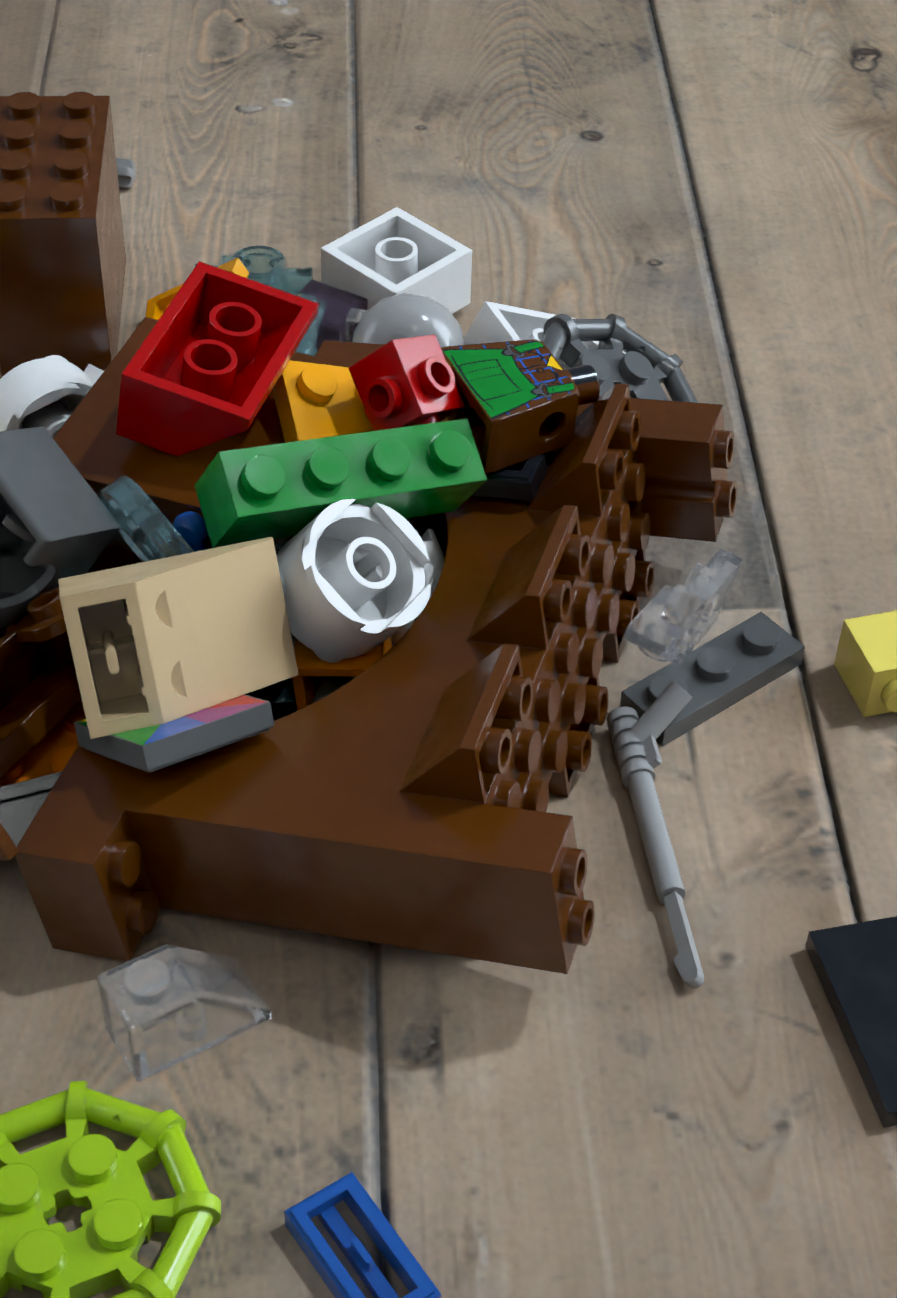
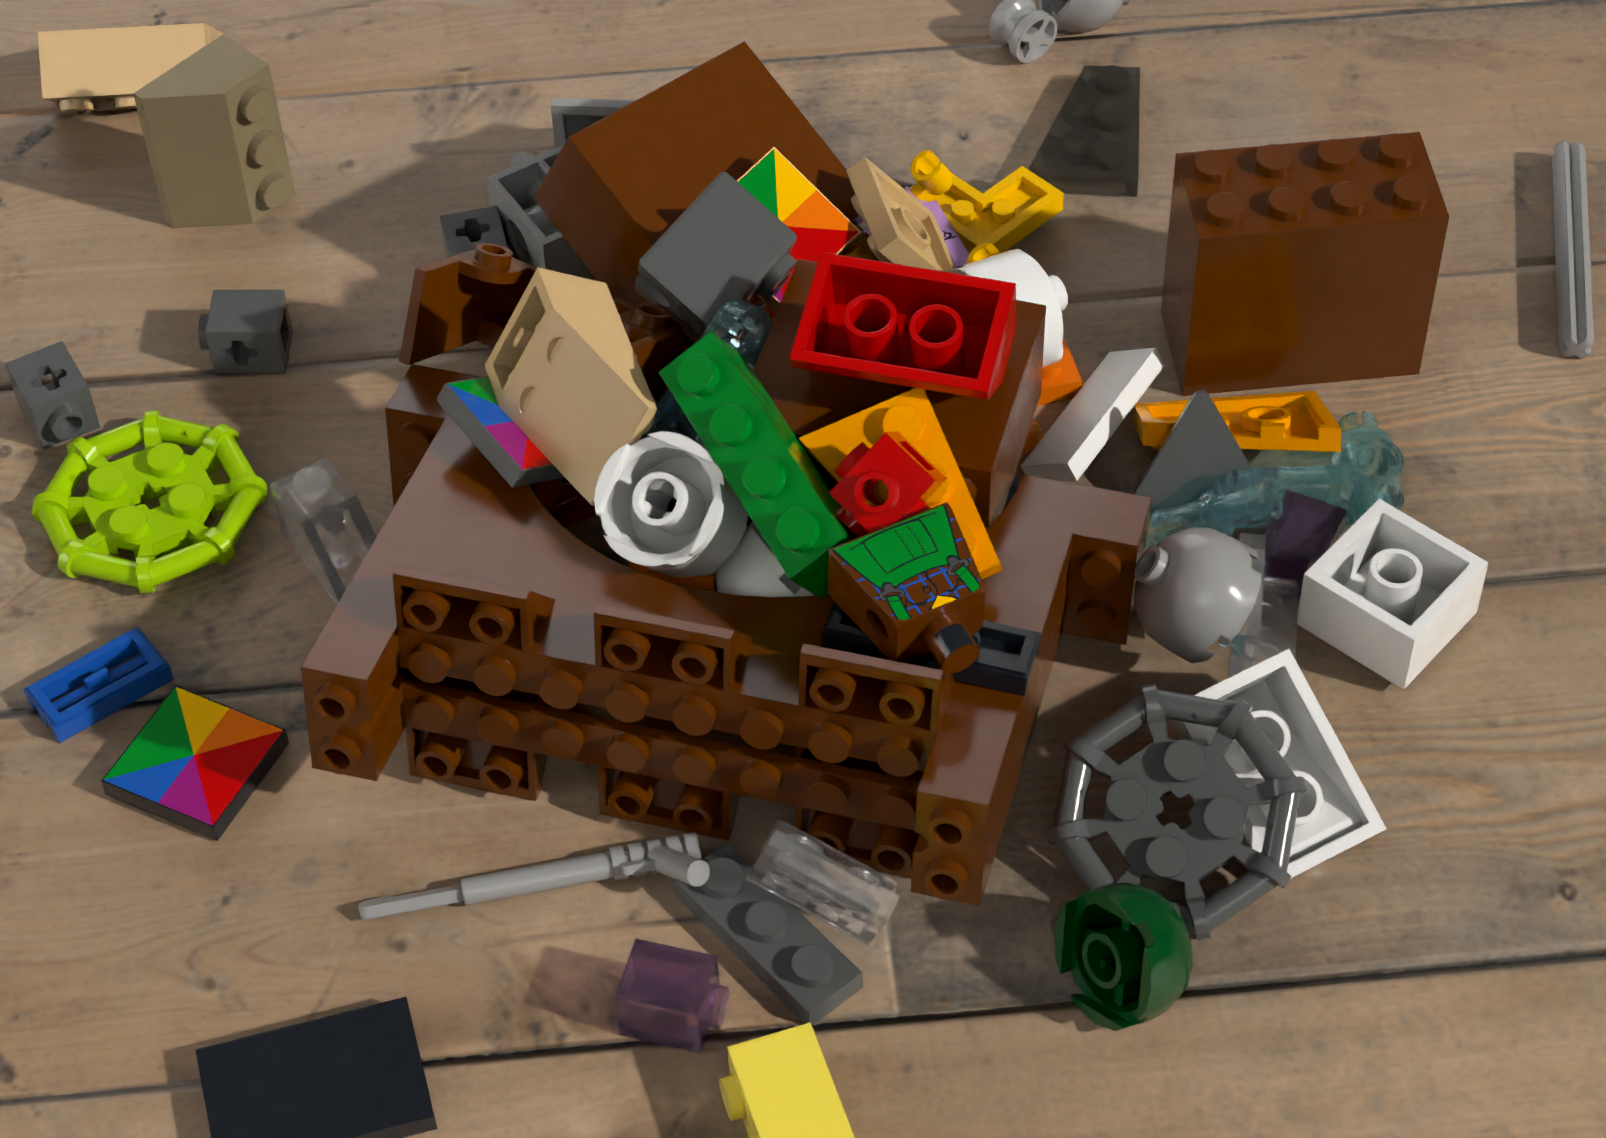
camera: 90 degrees right, 5 degrees up
(492, 1145) = (195, 762): none -> tile
(767, 446) = (1123, 953): none -> dark green cylinder
(798, 732) = (670, 996): none -> clear purple brick

